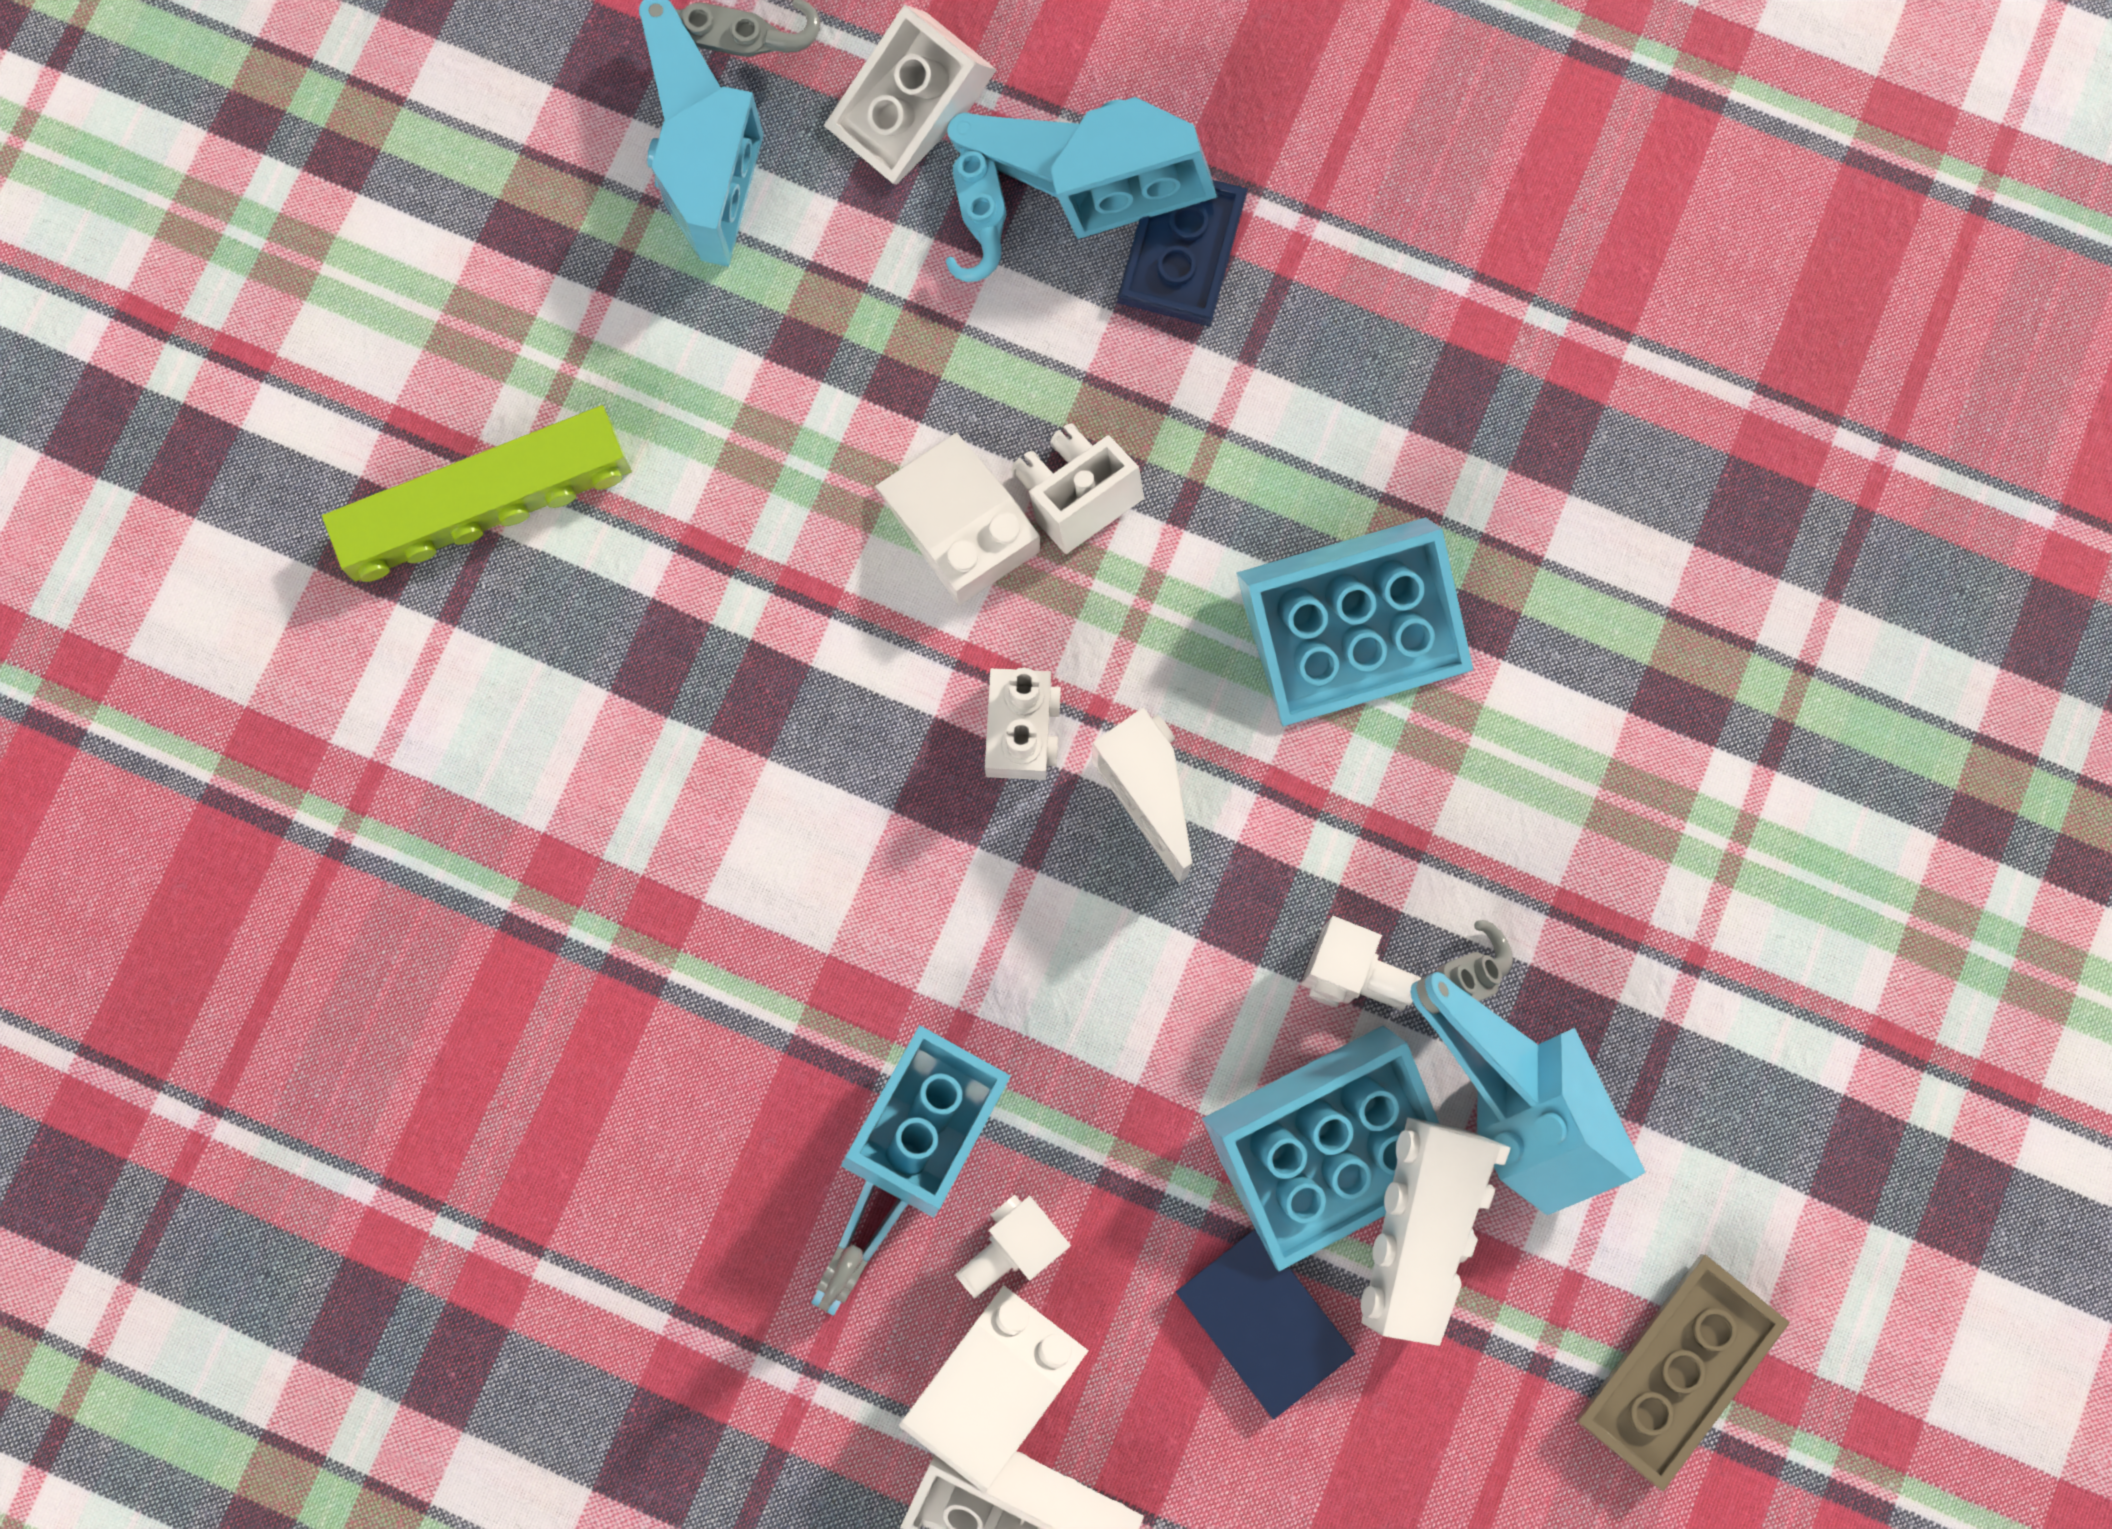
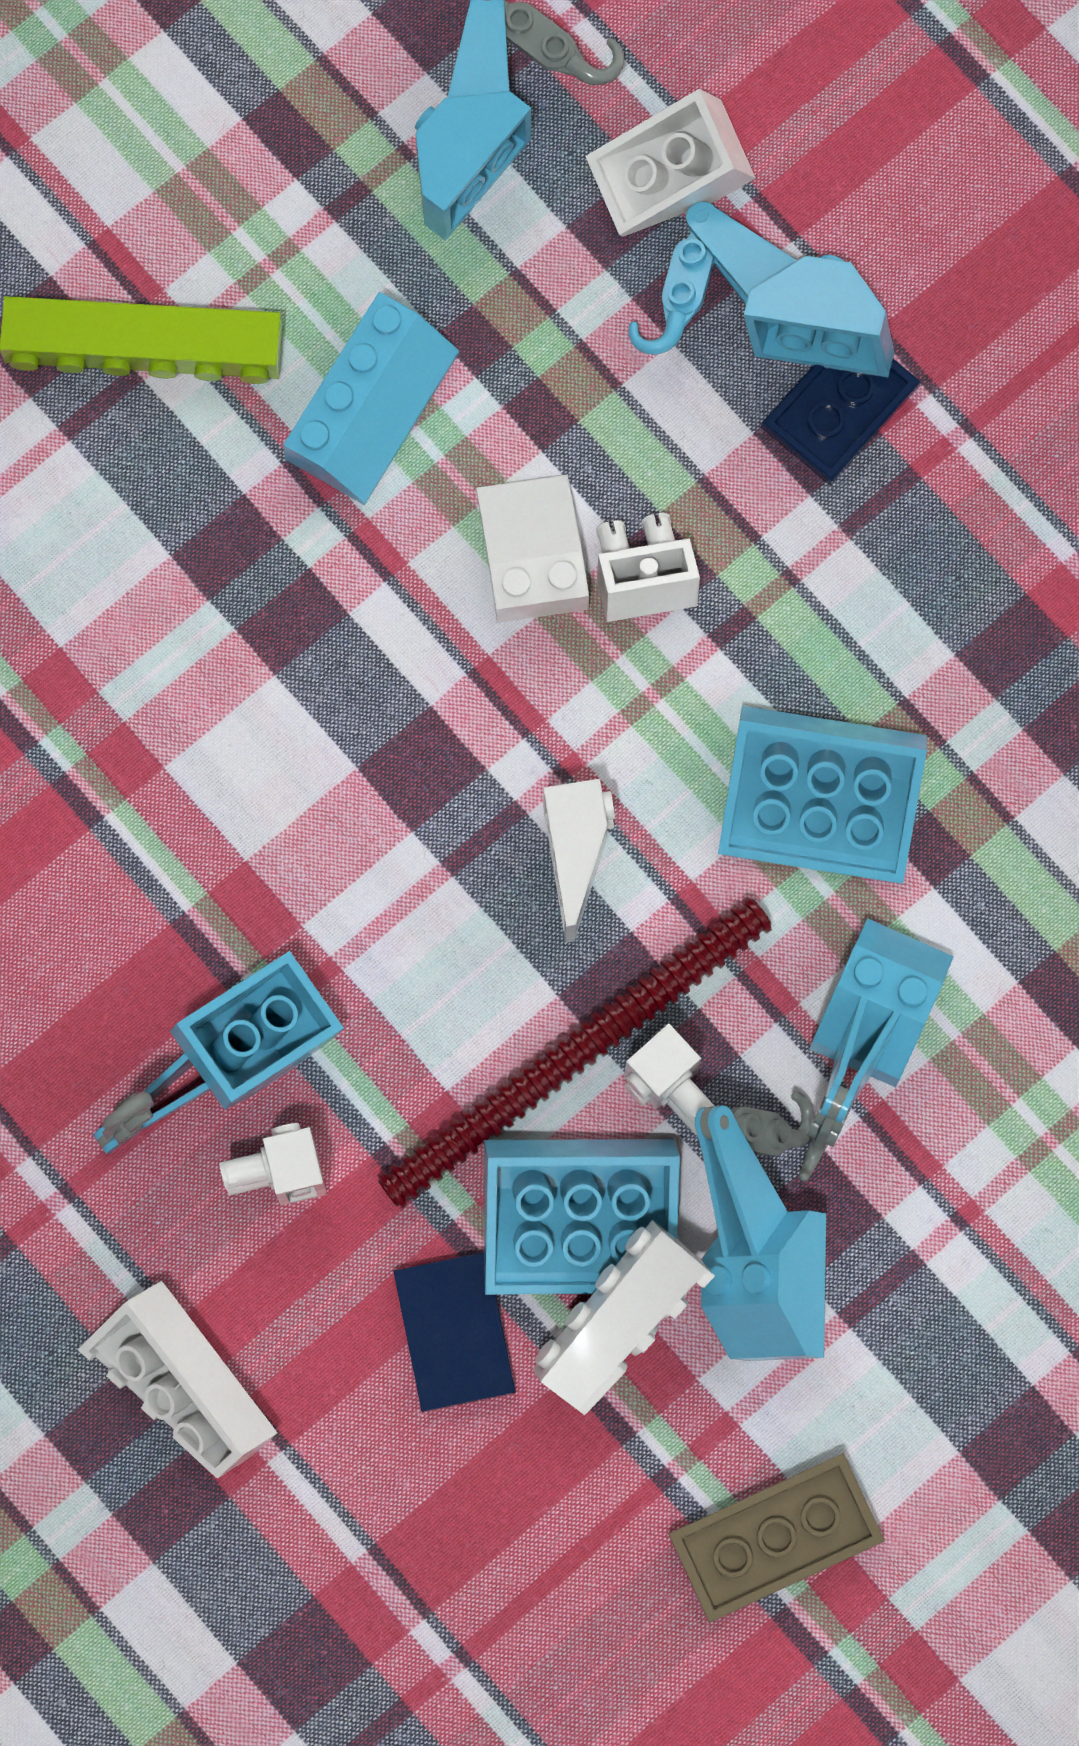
camera: 25 degrees right, 0 degrees up
(731, 448) = (370, 399): none -> medium azure slope
(993, 1389) = (207, 1269): white slope -> none
(1020, 724) = (497, 746): white brick -> none
(1244, 988) = (575, 1052): none -> dark red piece
(1522, 820) = (872, 1022): none -> medium azure slope

